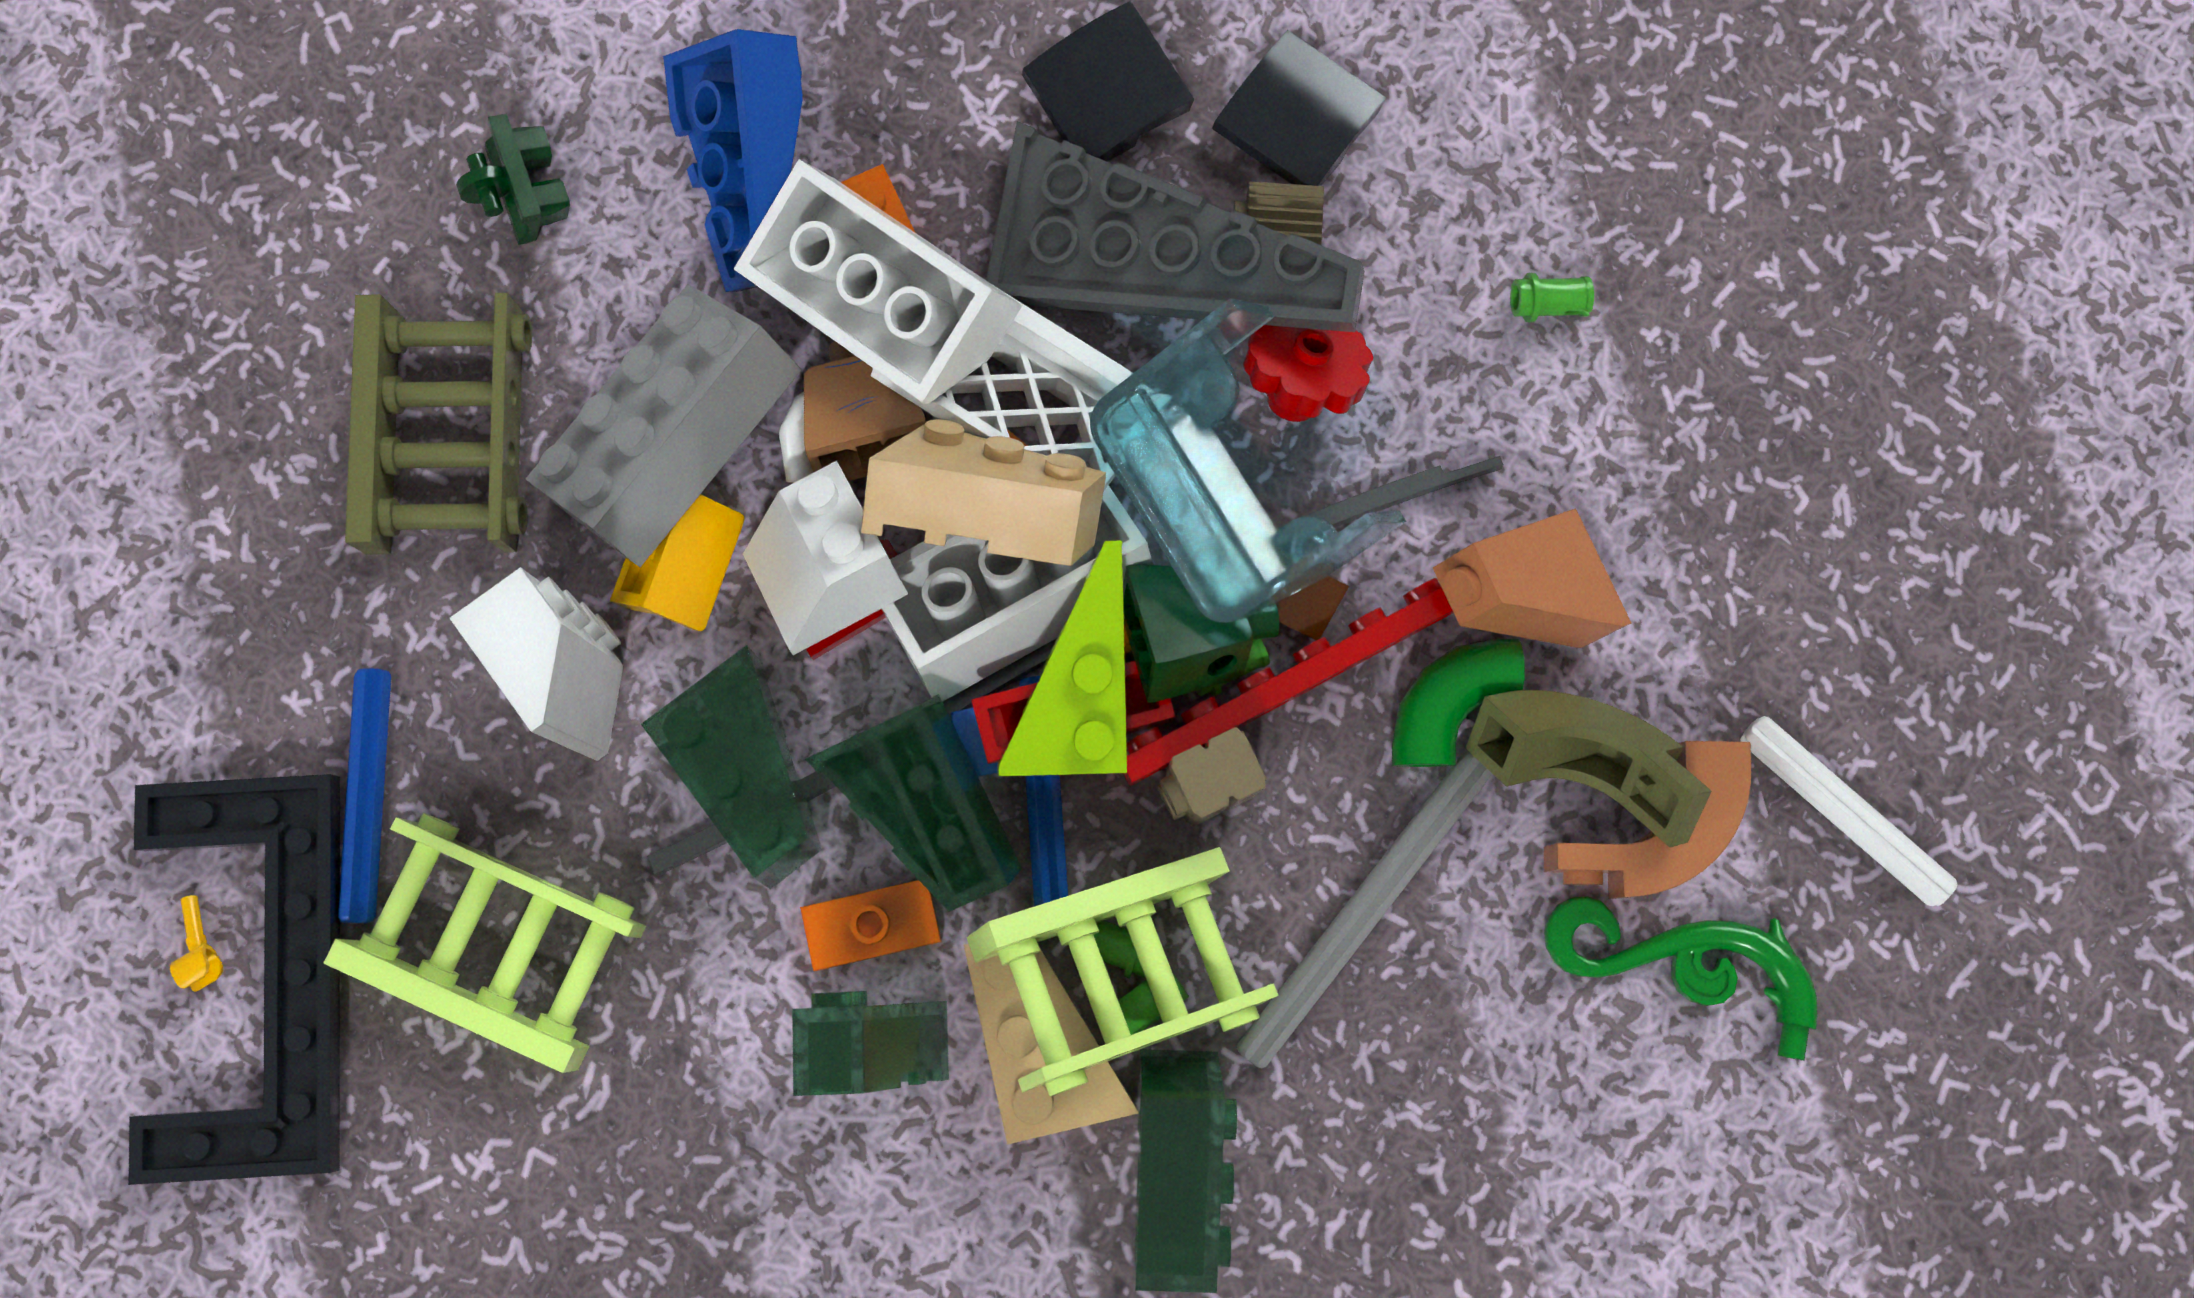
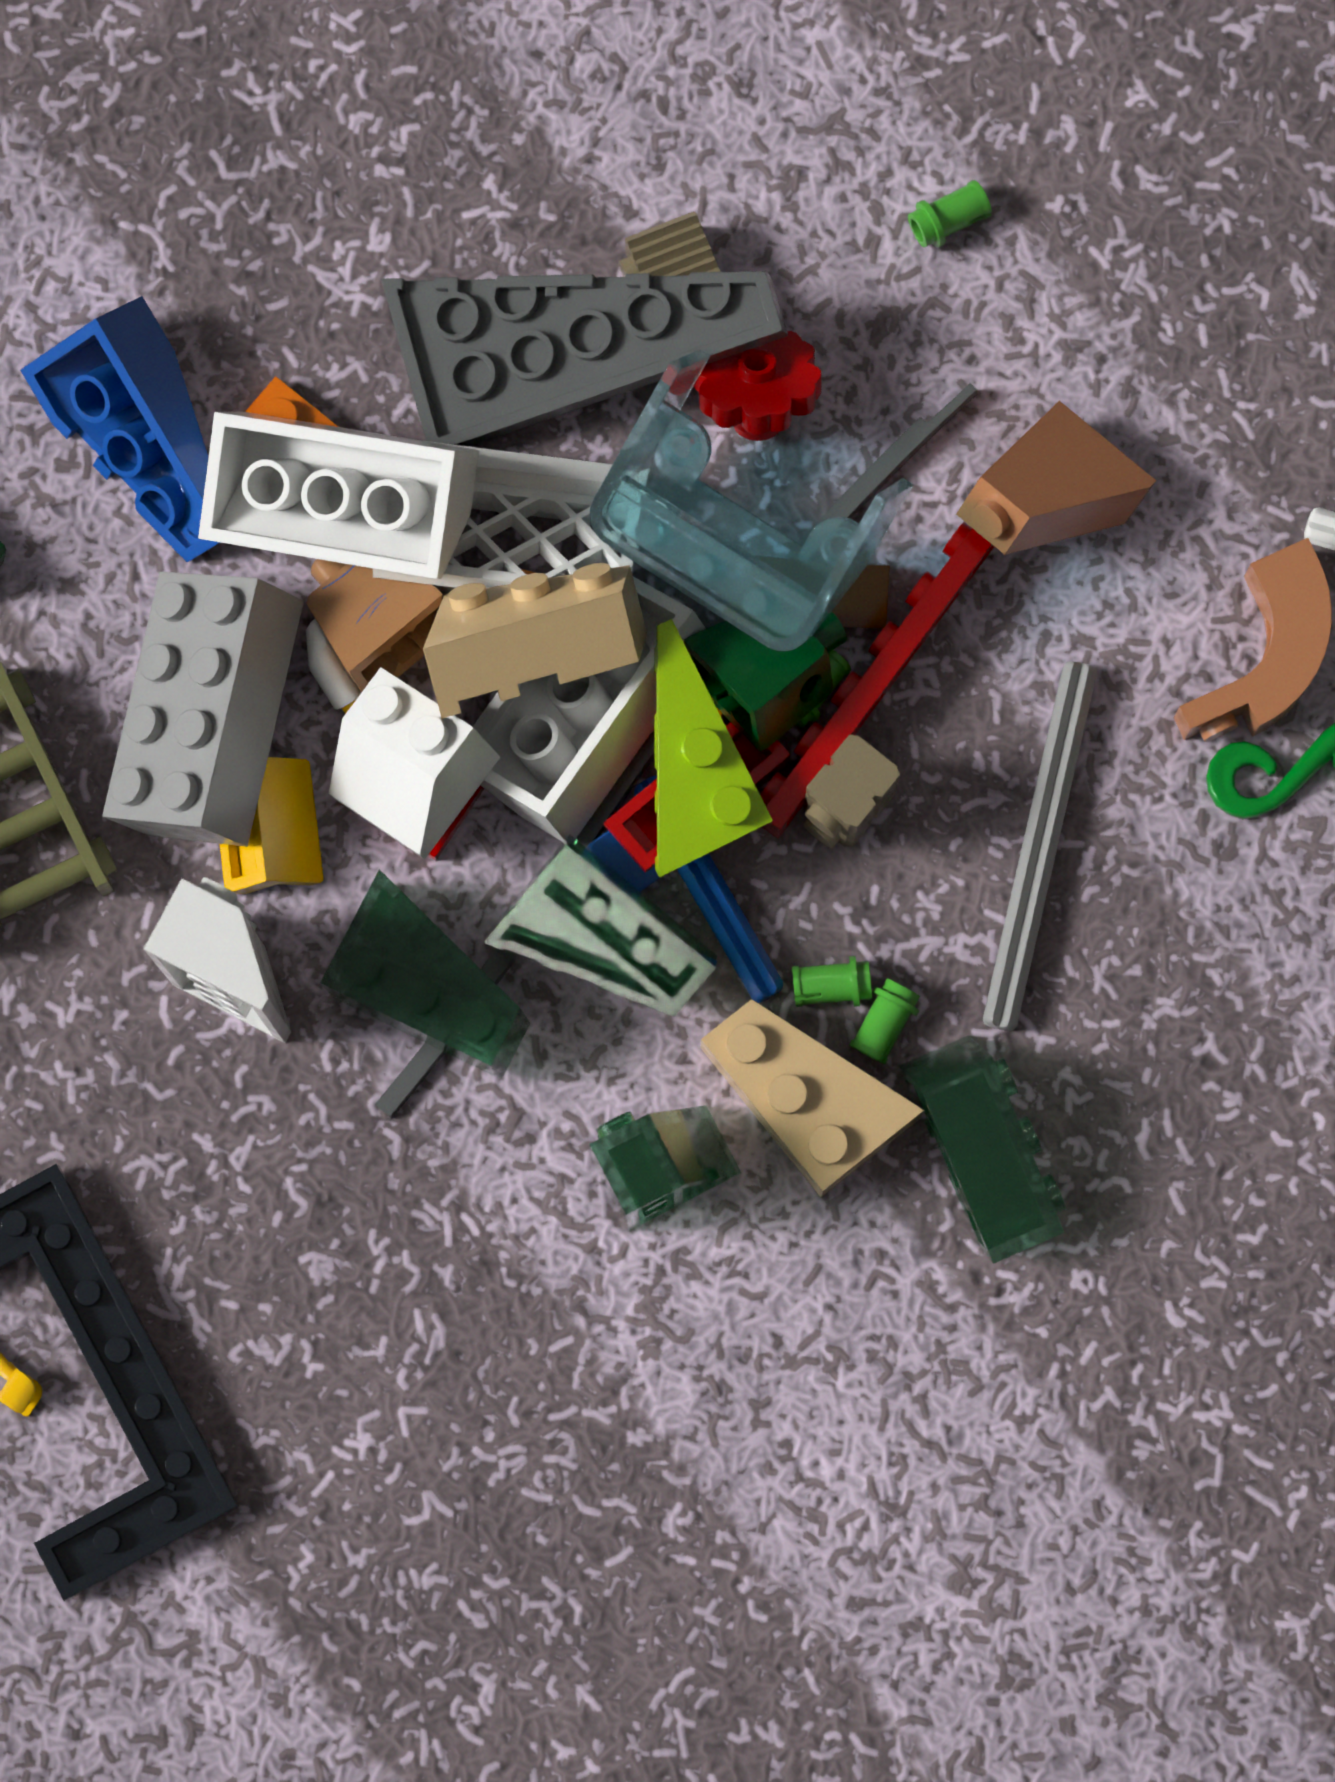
camera: 20 degrees left, 0 degrees up
(364, 796) = (92, 1171): blue axle -> none
(492, 1009) = (243, 1298): yellowish green fence -> none
(870, 925) = (606, 1069): orange plate -> none
(1074, 922) = (831, 933): yellowish green fence -> none
(1108, 84) = (447, 204): black slope -> none
(1298, 112) = (637, 149): black slope -> none
(1447, 694) = (1022, 623): green cylinder -> none
(1592, 743) = (1167, 606): olive arch -> none

